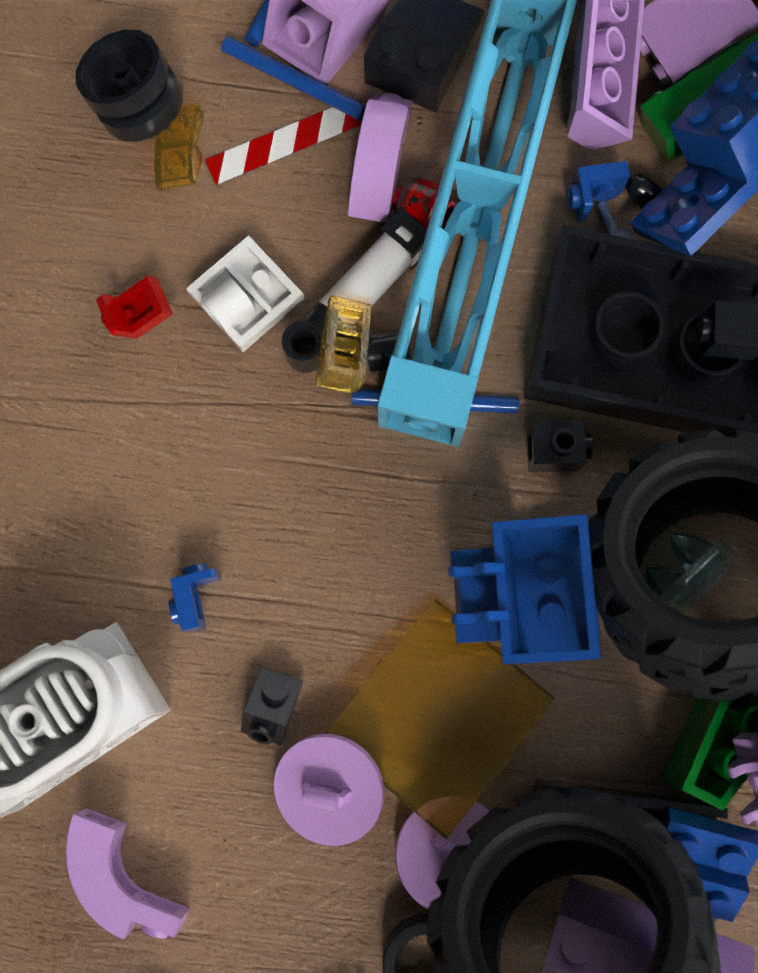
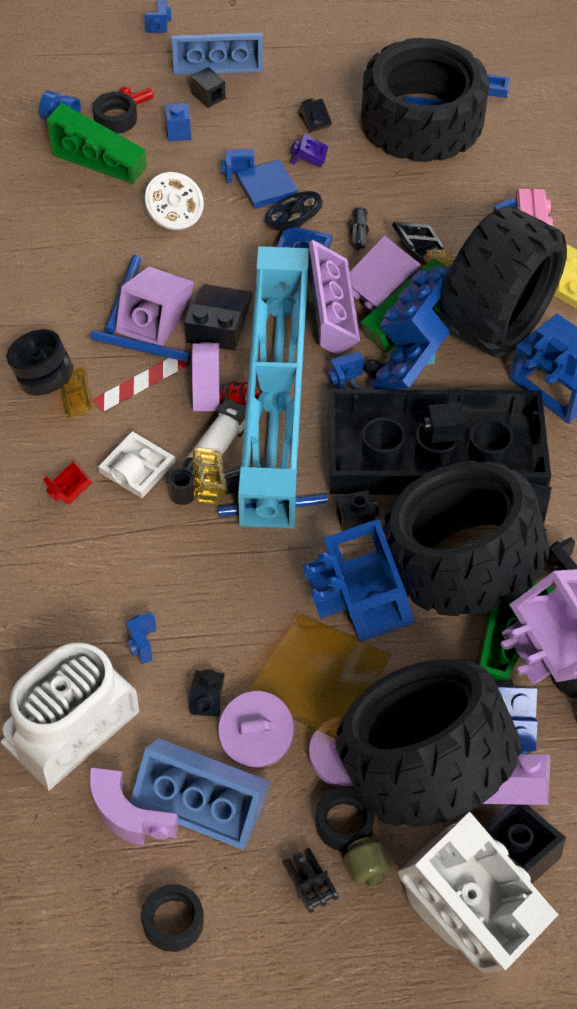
camera: 15 degrees left, 25 degrees down
(227, 874) = (201, 792): none -> medium blue slope

